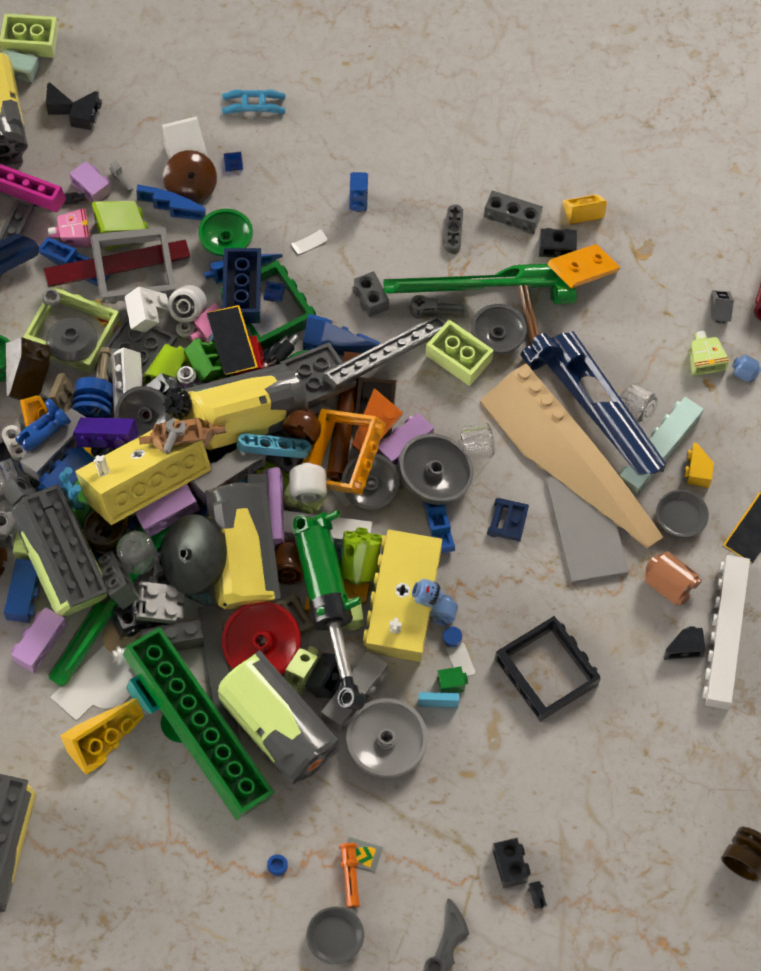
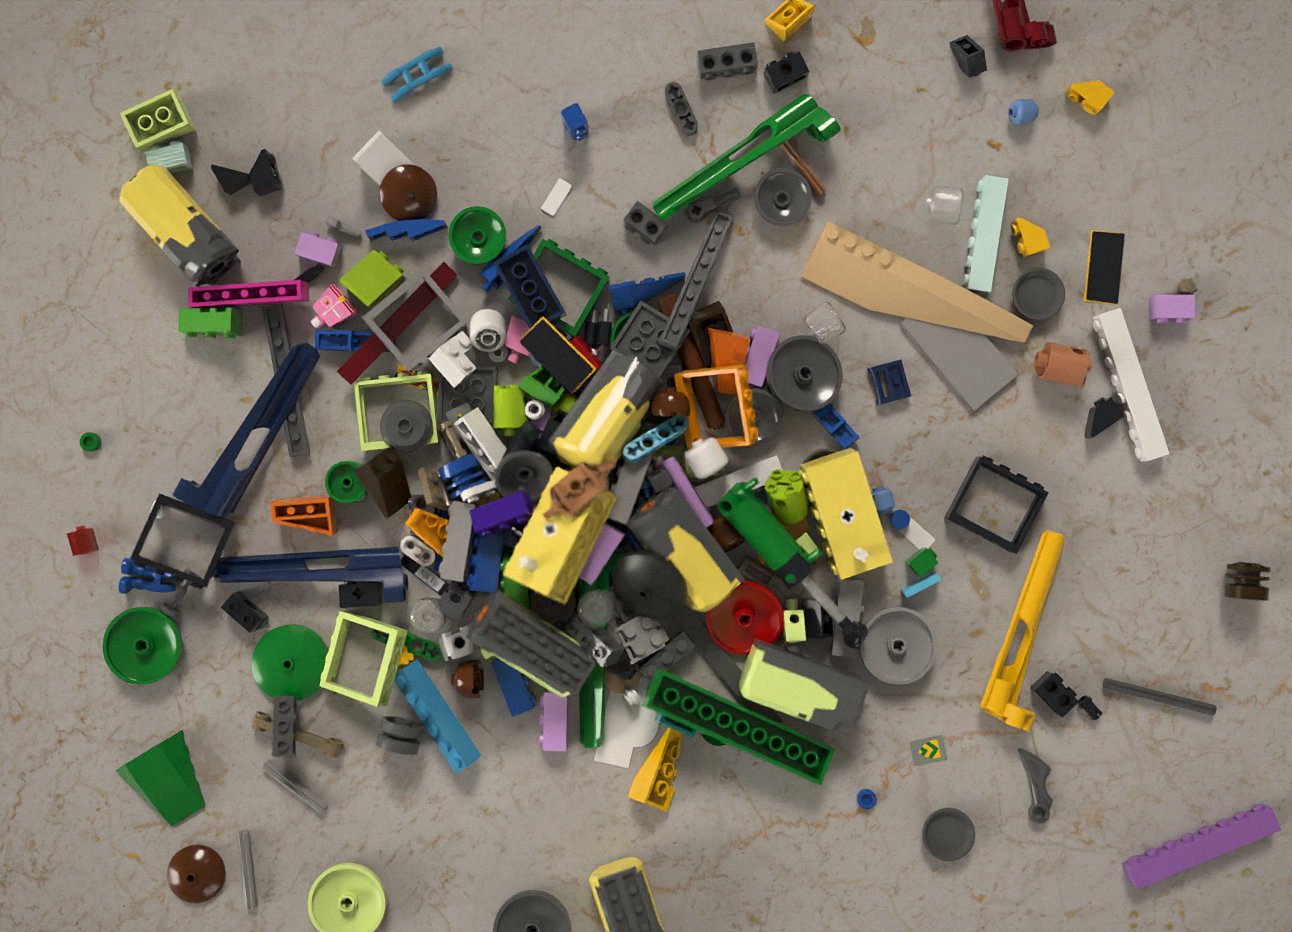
camera: 30 degrees left, 25 degrees up
(43, 428) = (434, 542): blue piece -> none
(51, 293) = (361, 391): light grey plate -> none
(71, 490) = (507, 592): dark azure piece -> none
(93, 409) = (472, 494): none -> white plate
(173, 433) = (576, 502): light grey bar -> none
(184, 404) = (549, 449): black gear -> none
(233, 161) = (435, 149): clear blue tile -> none
(274, 292) = (560, 275): clear blue tile -> none
(349, 864) = (925, 768): orange pin -> none
(427, 593) = (873, 511): medium blue head -> none
(459, 352) = (760, 241): yellowish green brick -> none
(464, 830) = (1006, 681): none -> yellow panel
(571, 363) = (864, 194): dark blue panel -> none
(583, 265) = (826, 87): light orange plate -> none
(611, 923) = (1159, 696): none -> dark grey axle
(707, 355) = (980, 116): yellowish green torso -> none

